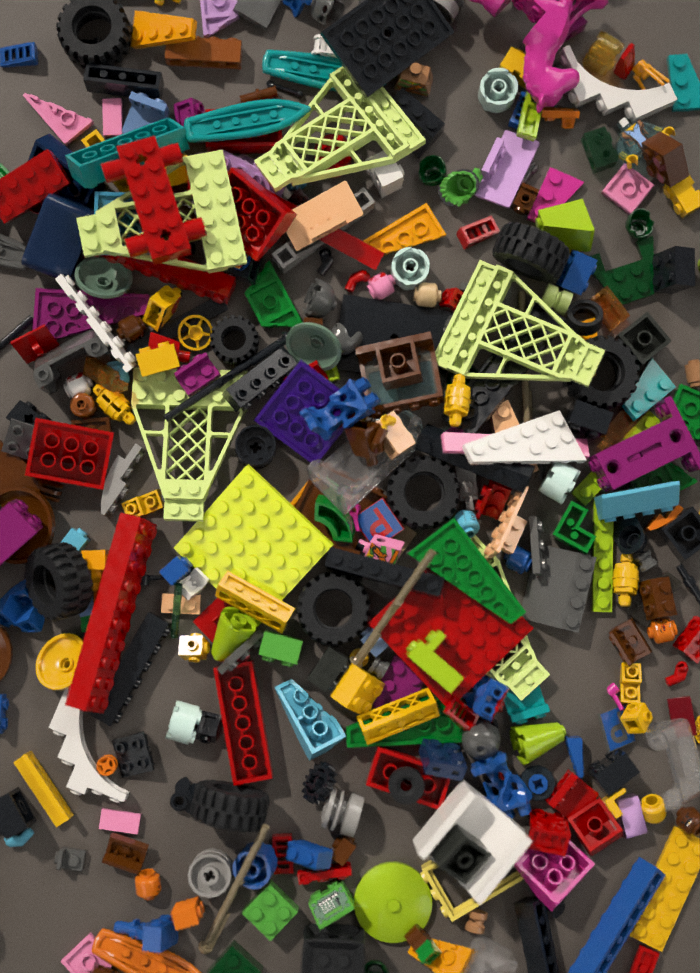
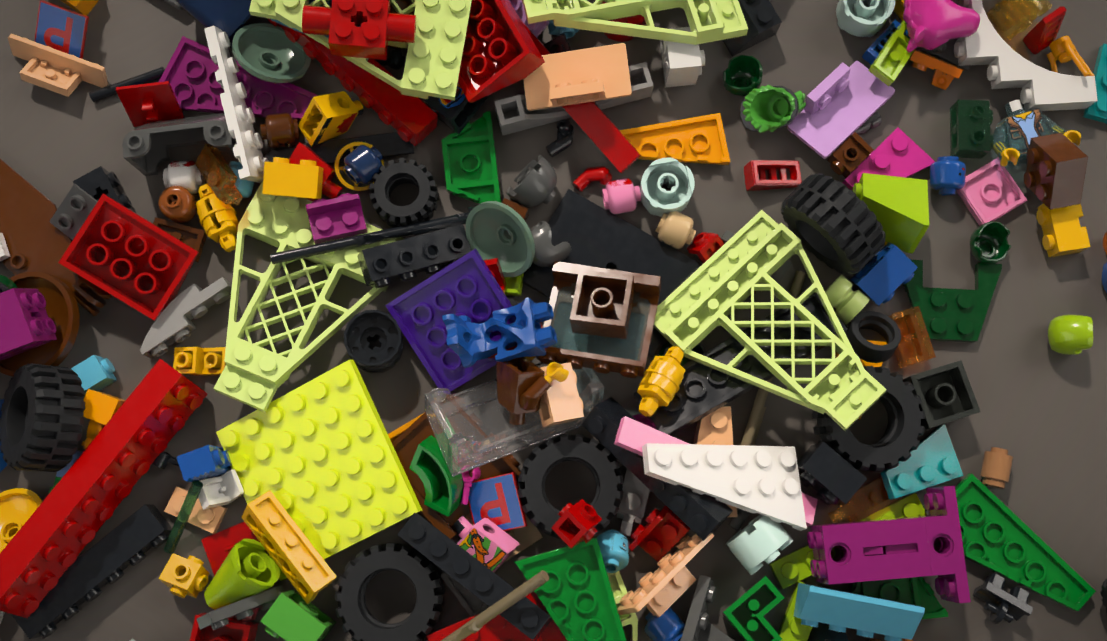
camera: 25 degrees right, 5 degrees down
(199, 330) = (362, 164): none -> dark blue head
(438, 513) = (577, 523): none -> red brick
(595, 188) = (947, 175): none -> blue head
(674, 270) = (1016, 319): black brick -> none

